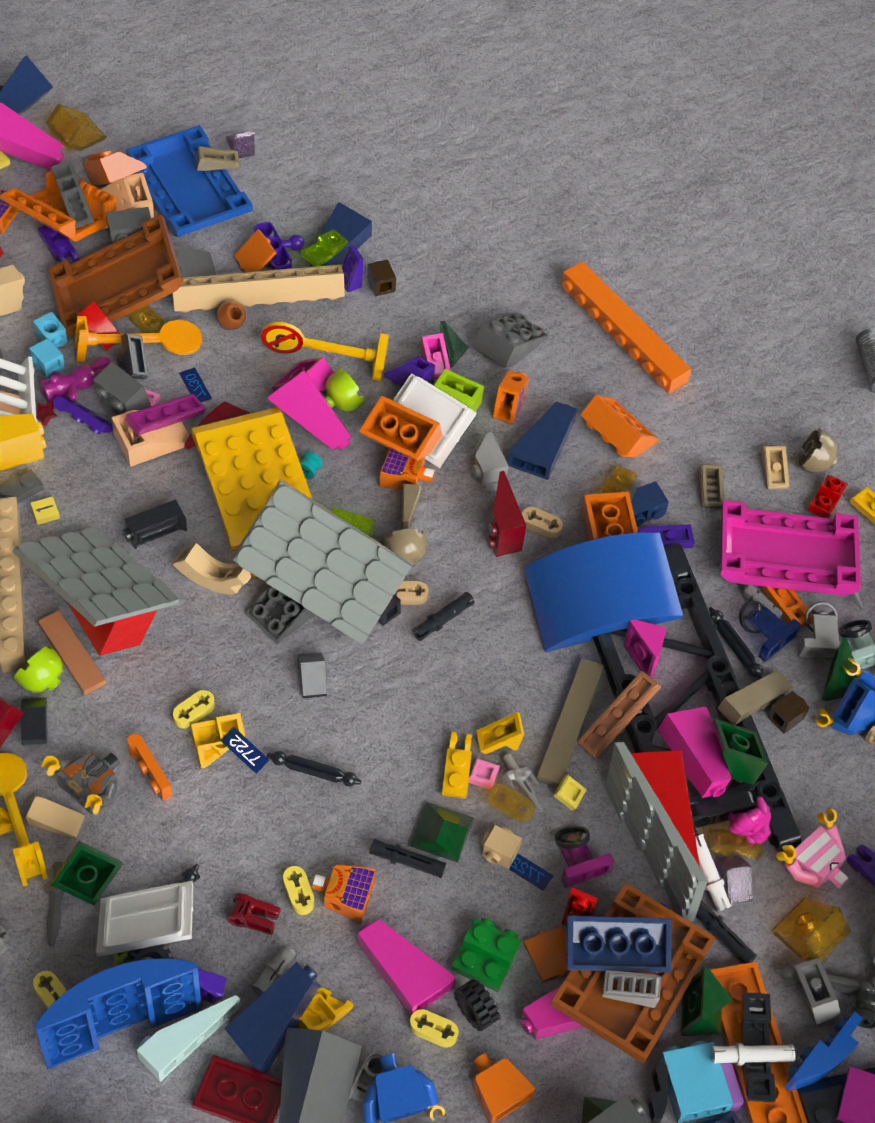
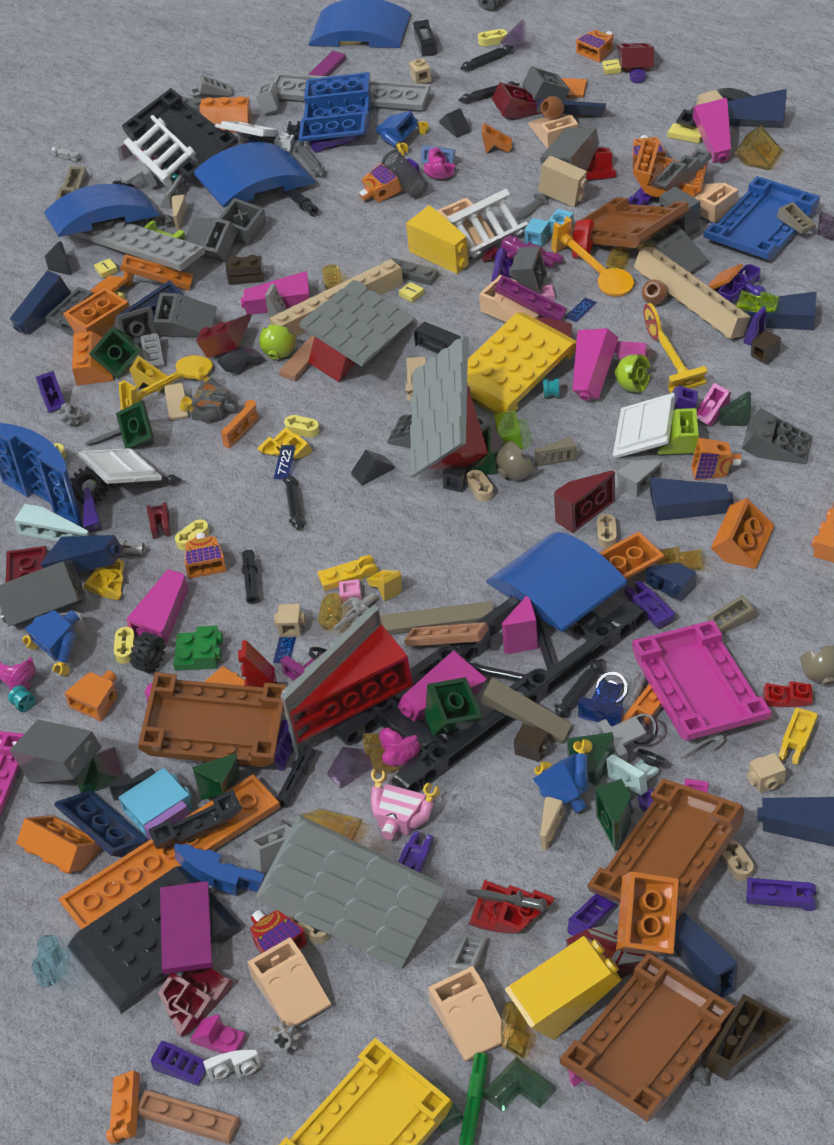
camera: 75 degrees right, 10 degrees down
(108, 166) = (724, 170): slope -> none
(133, 356) = (570, 265): black tile -> none
(401, 429) = (613, 410): orange slope -> none
(403, 470) = (590, 435): torso -> none
(436, 621) = (464, 509): black pin -> none
(442, 832) = (286, 588): dark green slope -> none
(618, 944) = (227, 697): dark blue slope -> none
(641, 979) = (199, 731): light grey slope -> none
(714, 883) = (335, 745): white pin -> none
(762, 1053) = (183, 810): white pin -> none
(775, 467) = (790, 649): tan slope -> none

